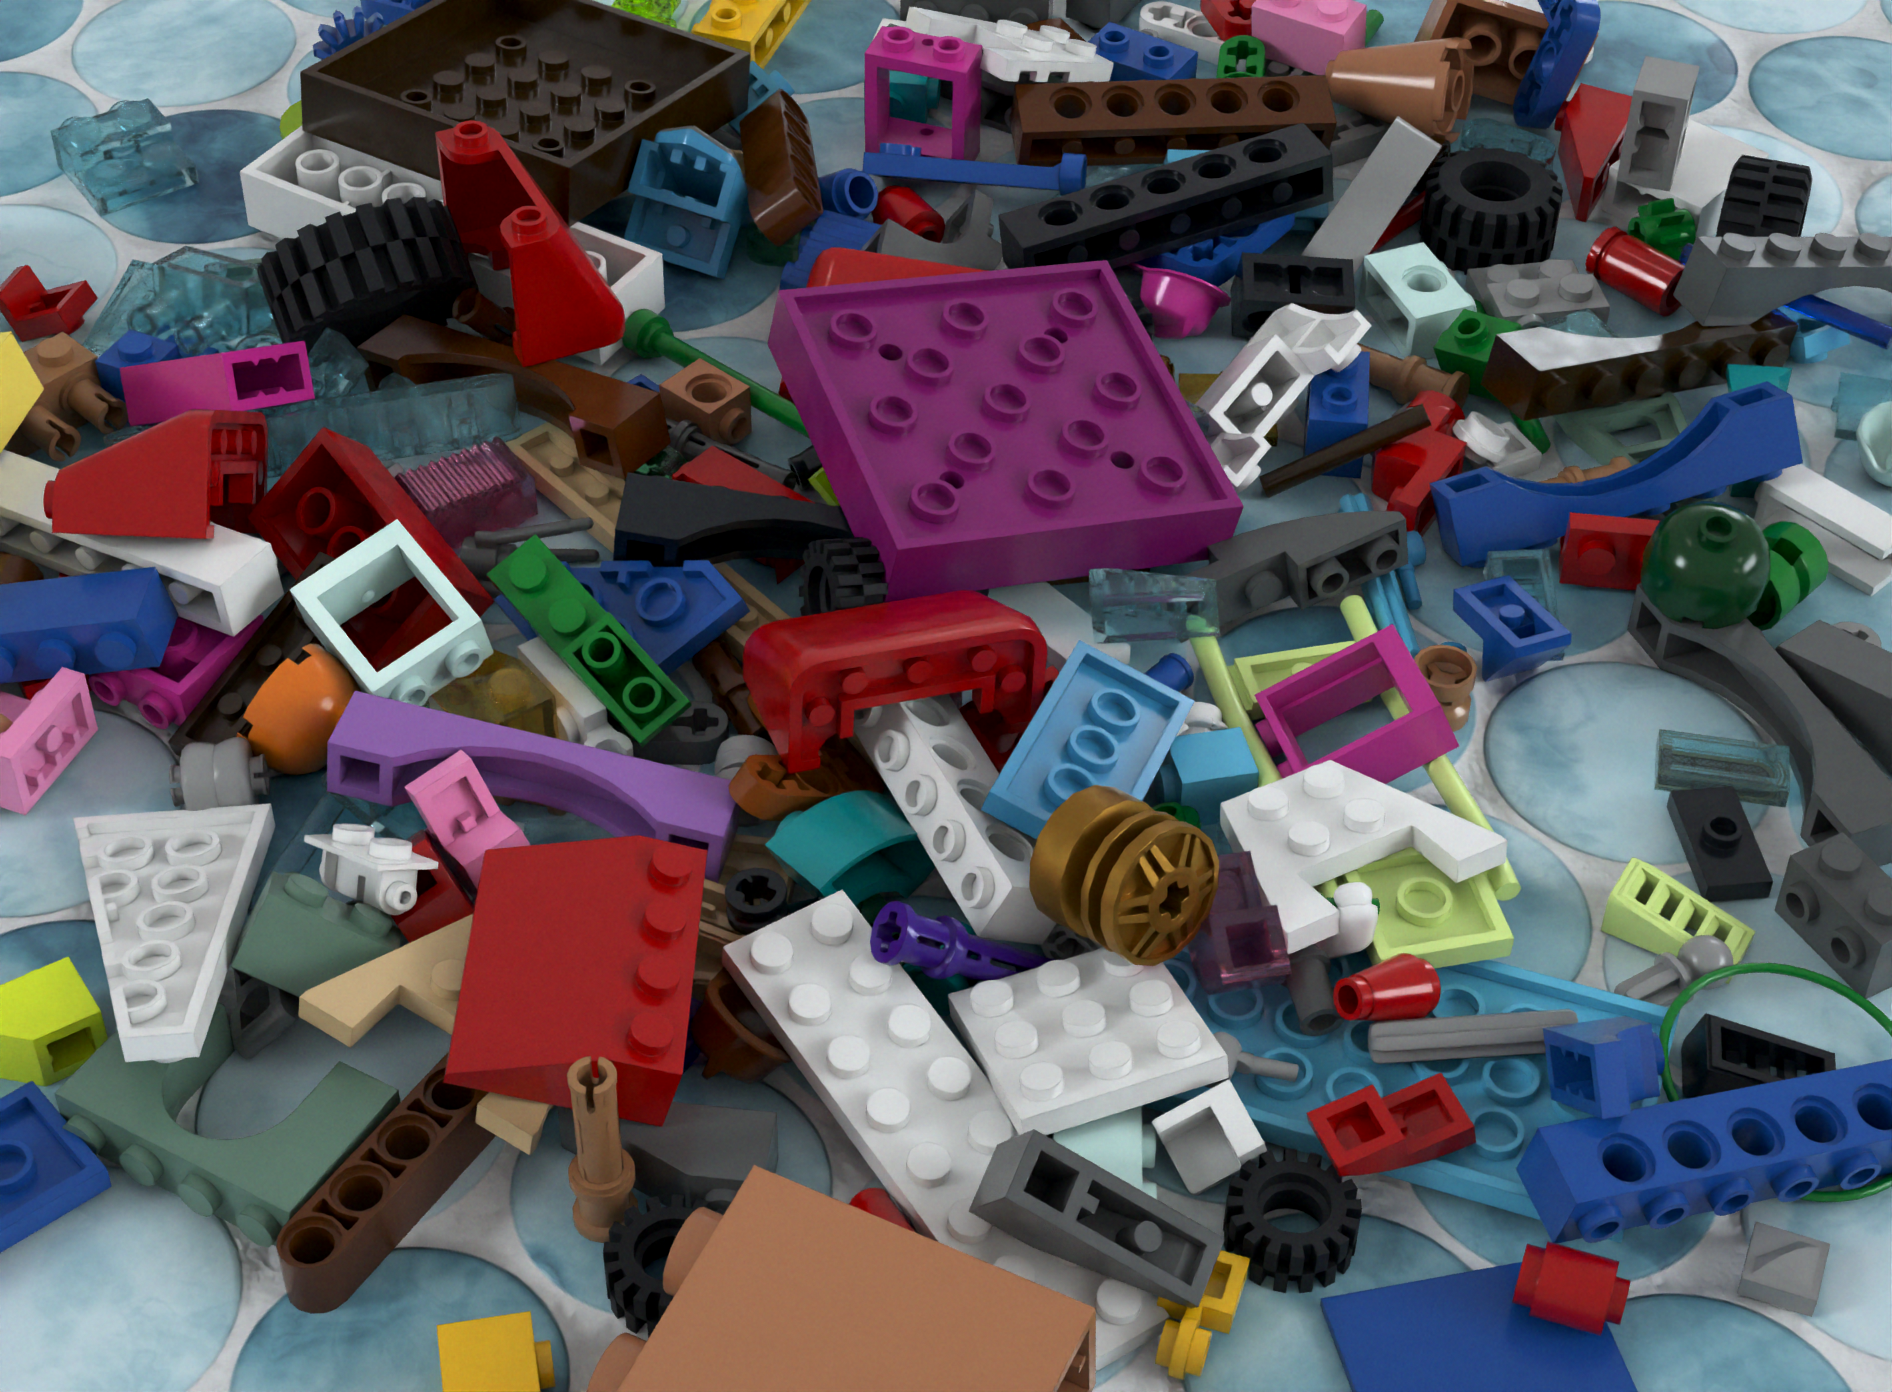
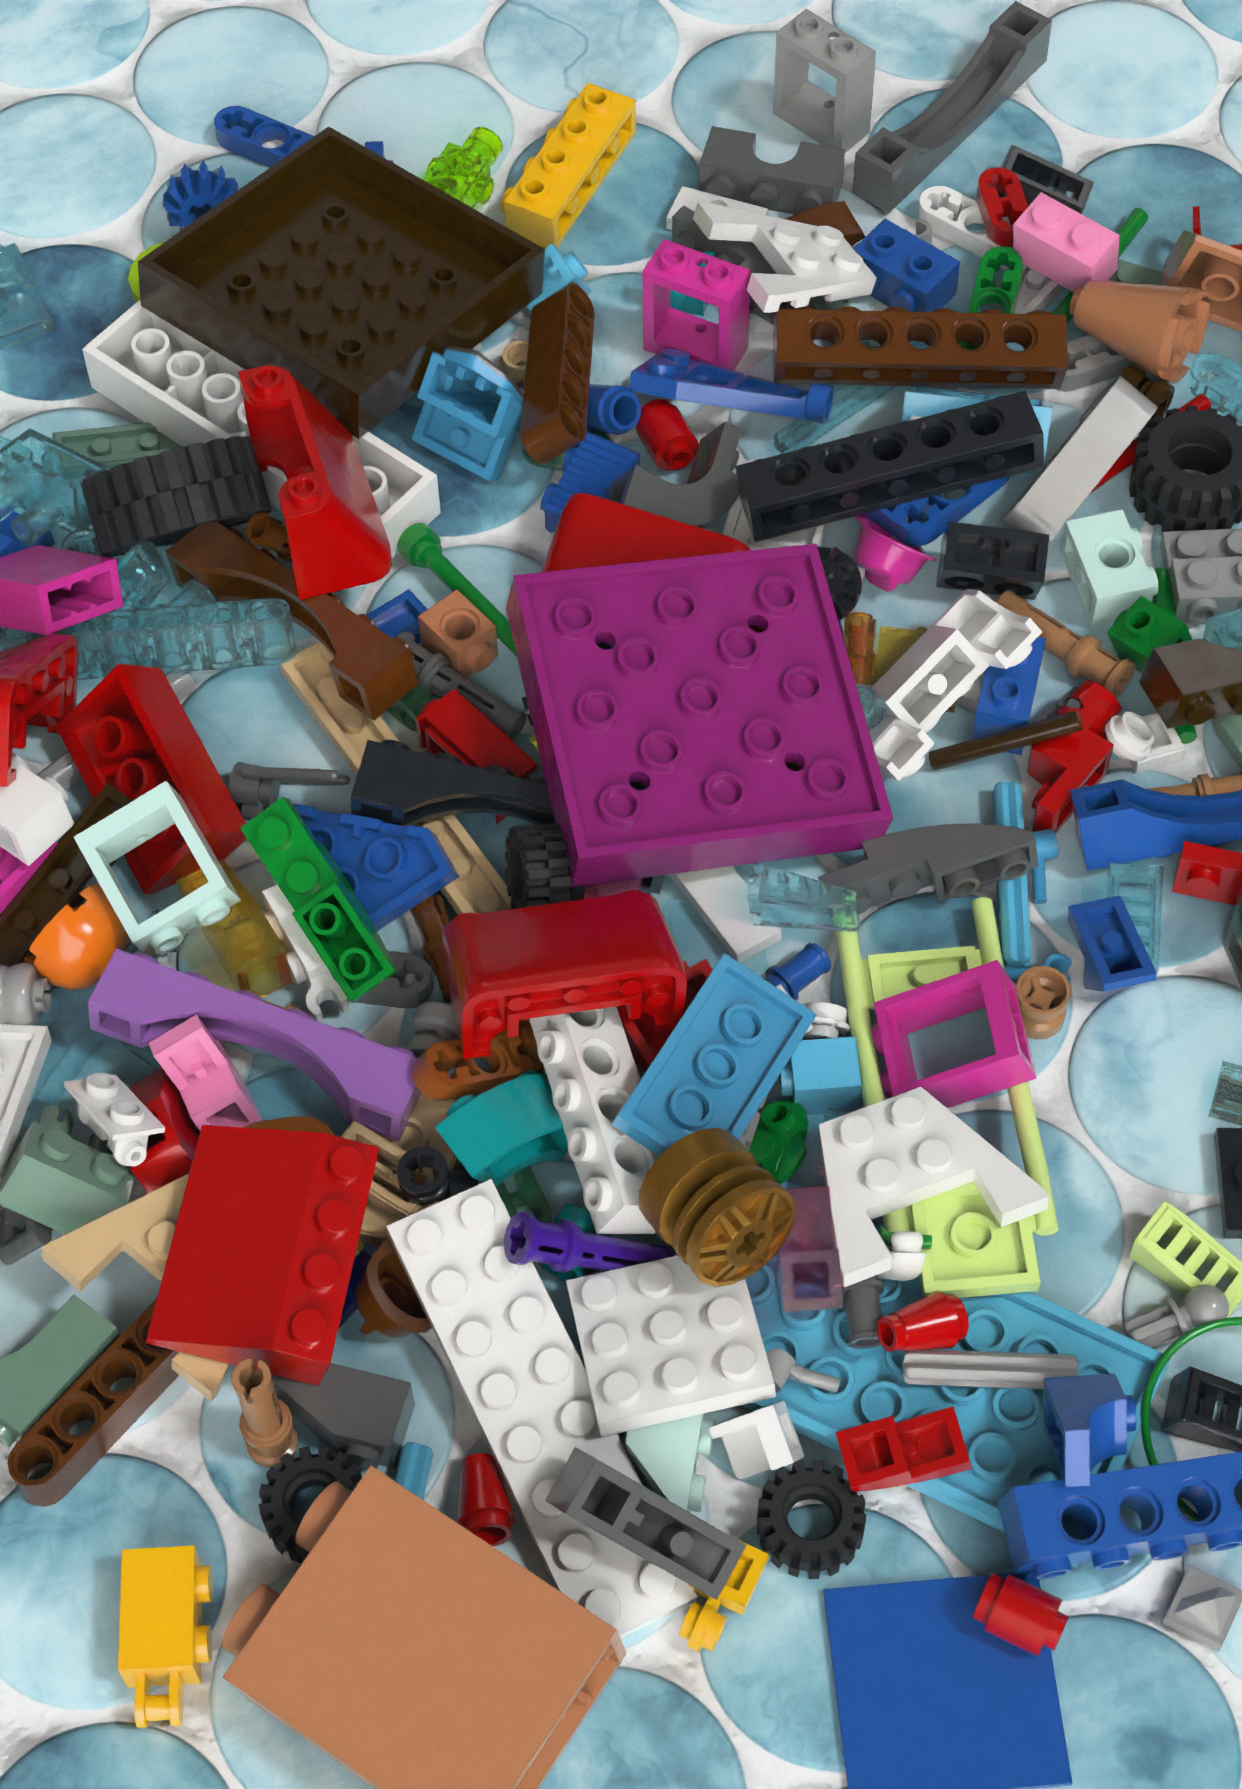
camera: 10 degrees right, 15 degrees up
(473, 491) = (244, 714): clear pink brick -> none

